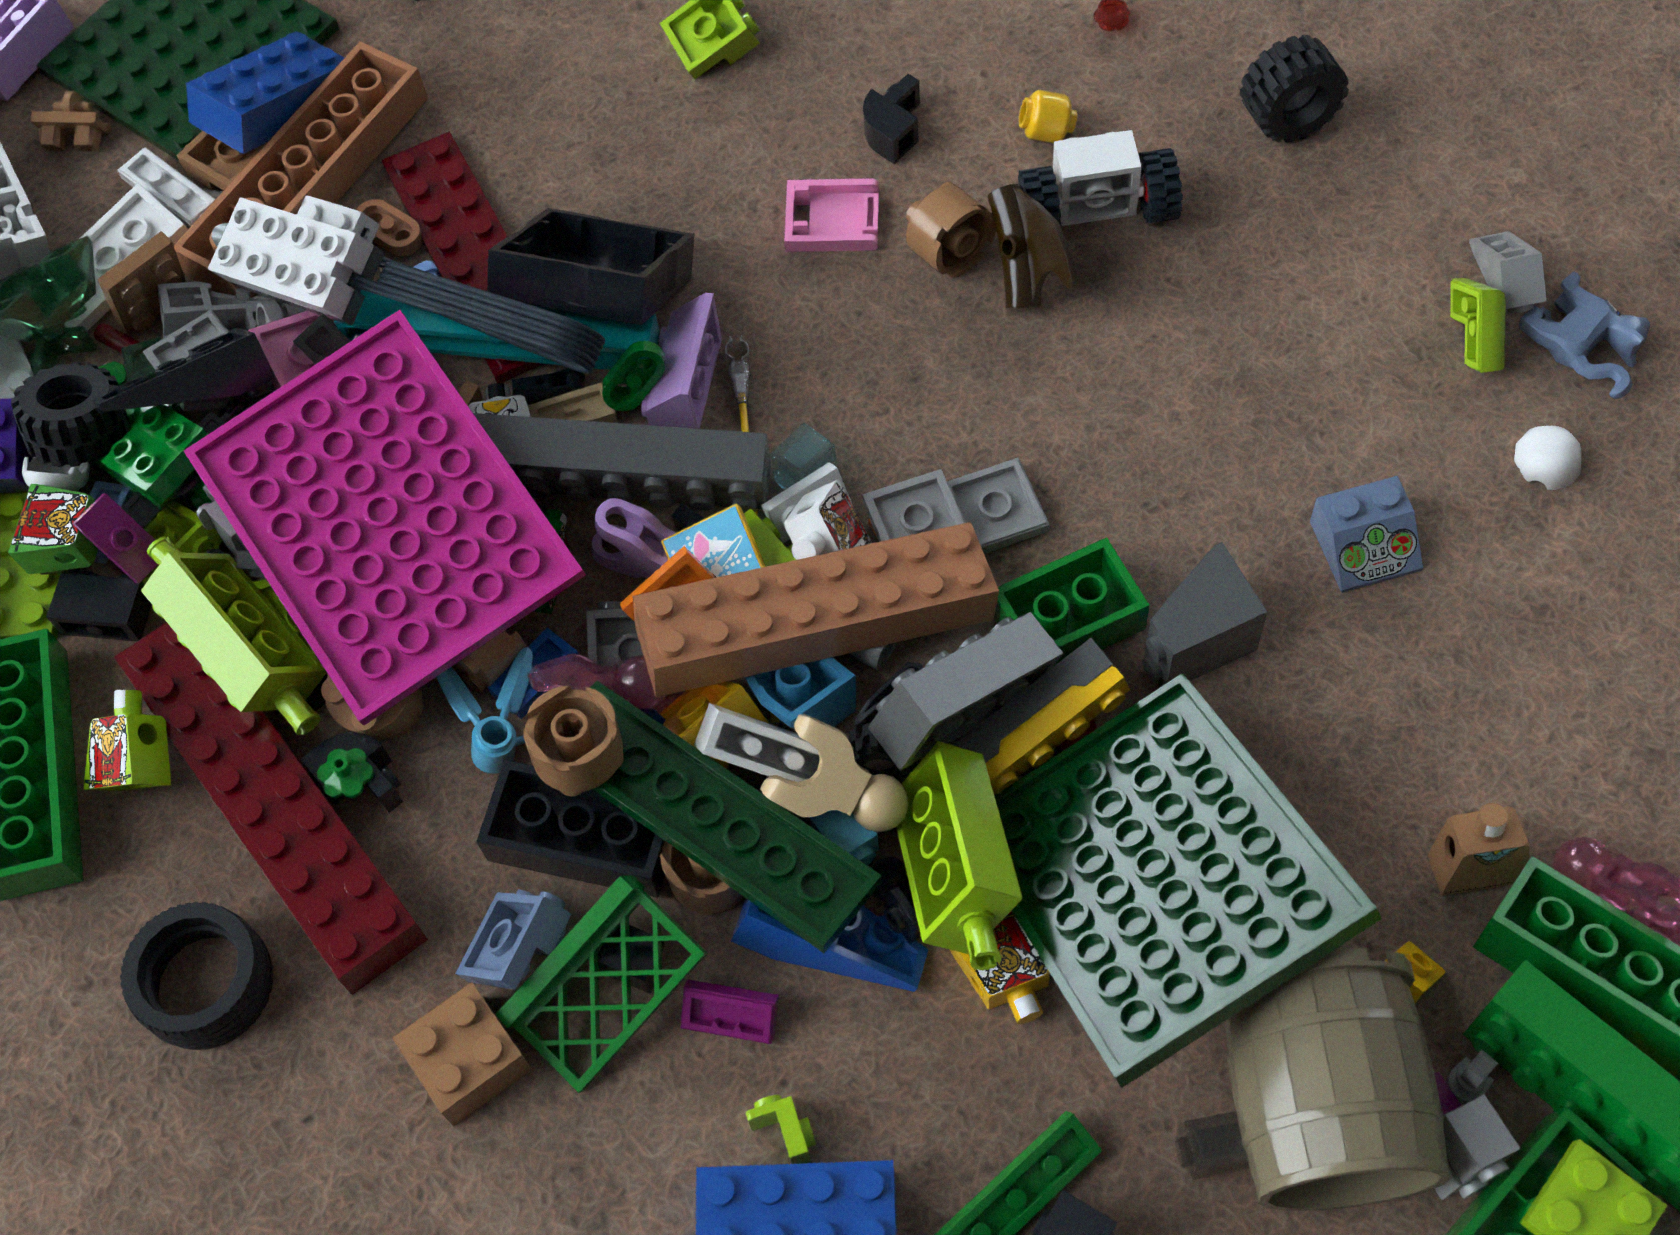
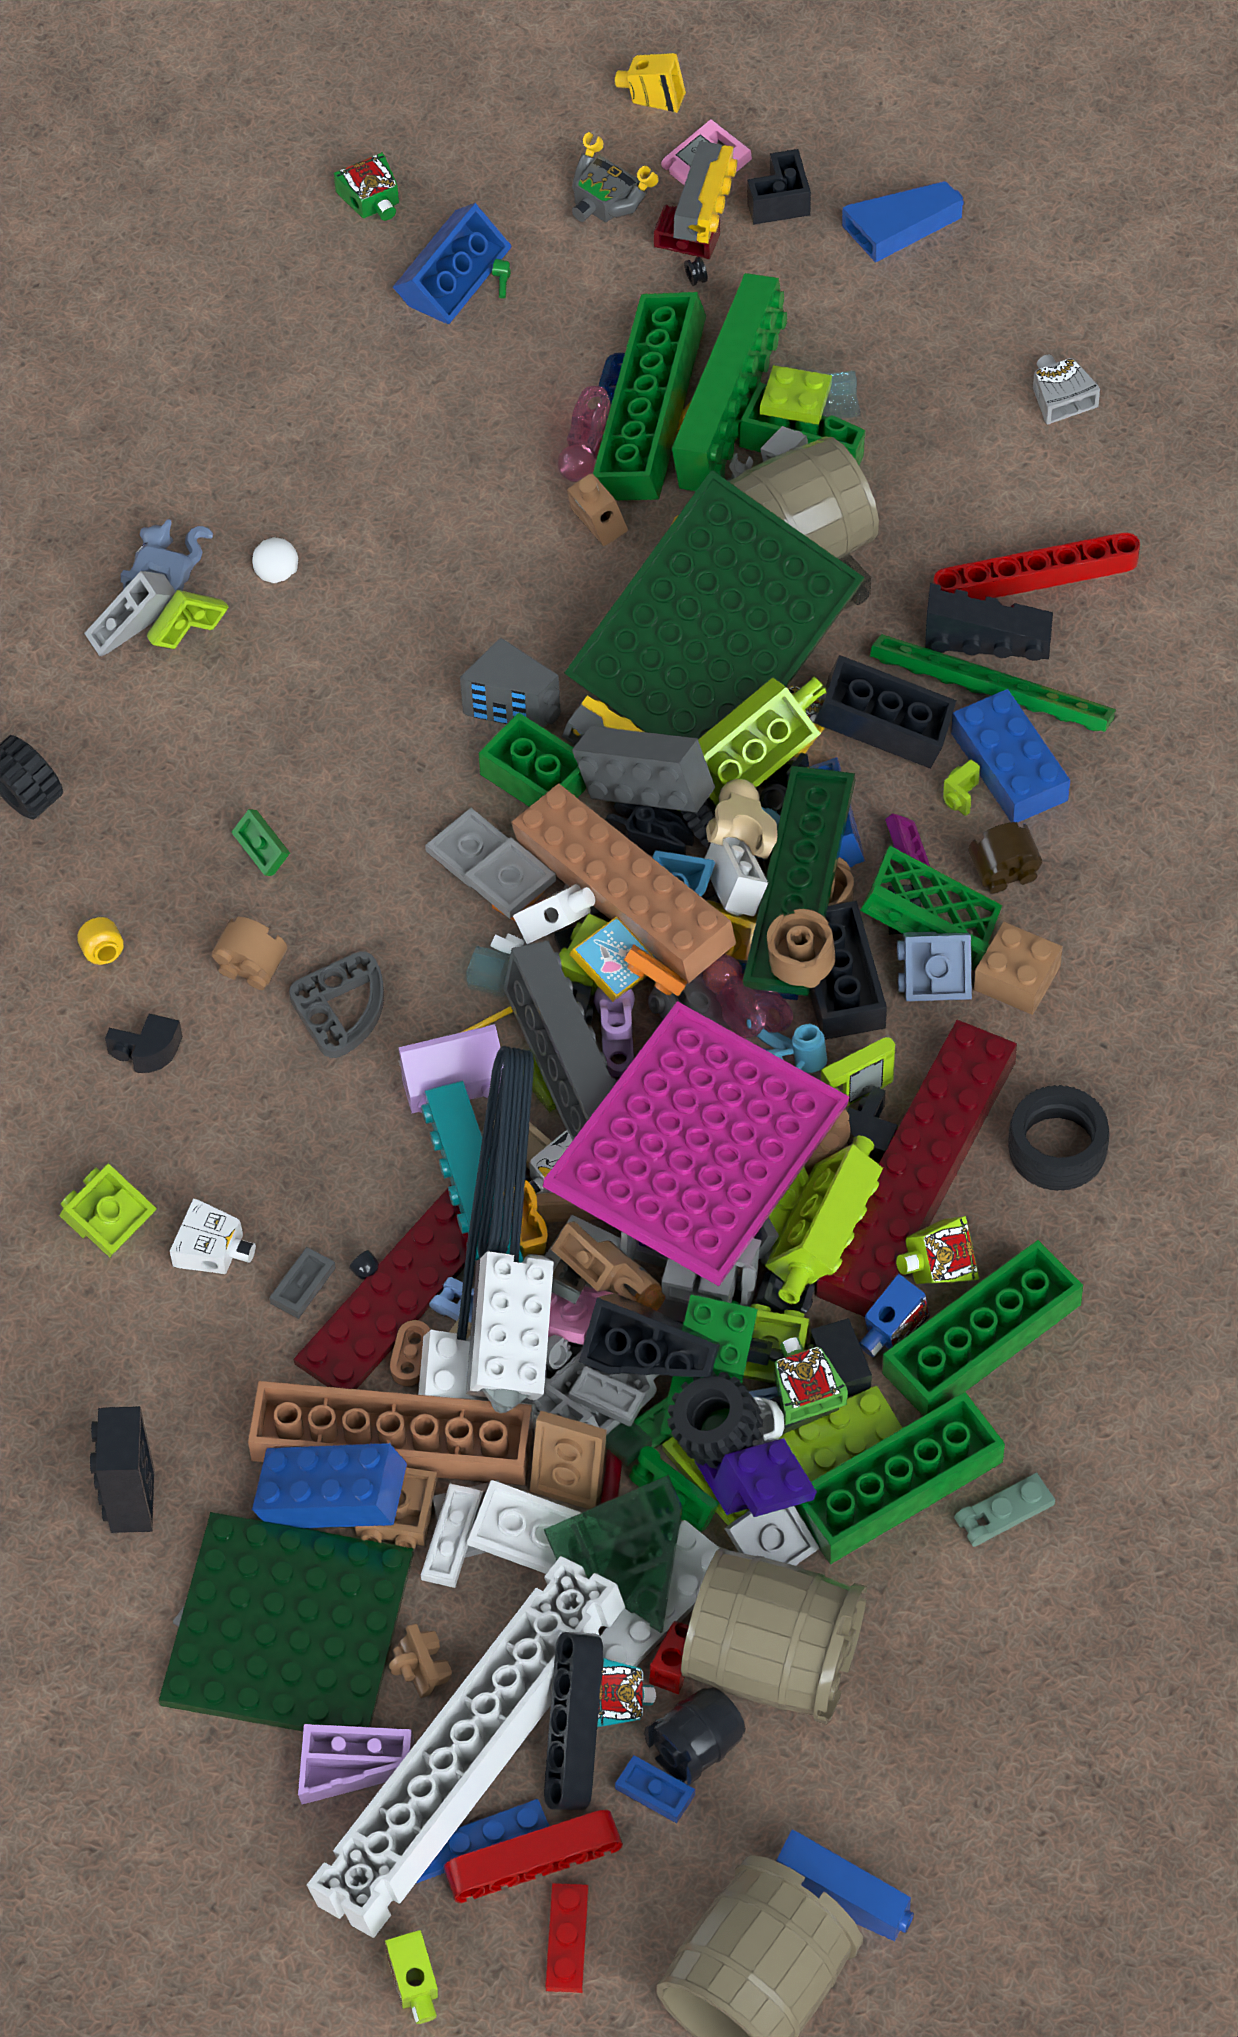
camera: 120 degrees left, 5 degrees down
(87, 666) = (894, 1316): none -> blue torso
(117, 537) = (795, 1327): magenta plate -> none
(345, 773) = (880, 1116): green plant -> none
(416, 773) = (862, 1070): none -> lime container
(466, 357) = (533, 1226): none -> light orange brick
(511, 221) = (364, 1265): none -> black hinge
(528, 165) = (302, 1282): none -> dark grey plate
(591, 265) = (403, 1148): black tile -> none
(623, 101) = (209, 1240): none -> white torso
(627, 1119) = (1005, 856): none -> dark brown brick
(636, 373) = (475, 1077): green plate -> none
(840, 215) = (256, 1048): bright pink container -> none
(863, 290) = (318, 1002): none -> dark grey beam
(935, 1065) = (885, 711): none -> black brick
(1029, 246) = (251, 883): dark brown pin -> none
(1103, 179) = (163, 876): brick -> none
(1123, 299) = (260, 842): none -> green plate
(1368, 533) = (387, 635): sand blue slope -> none

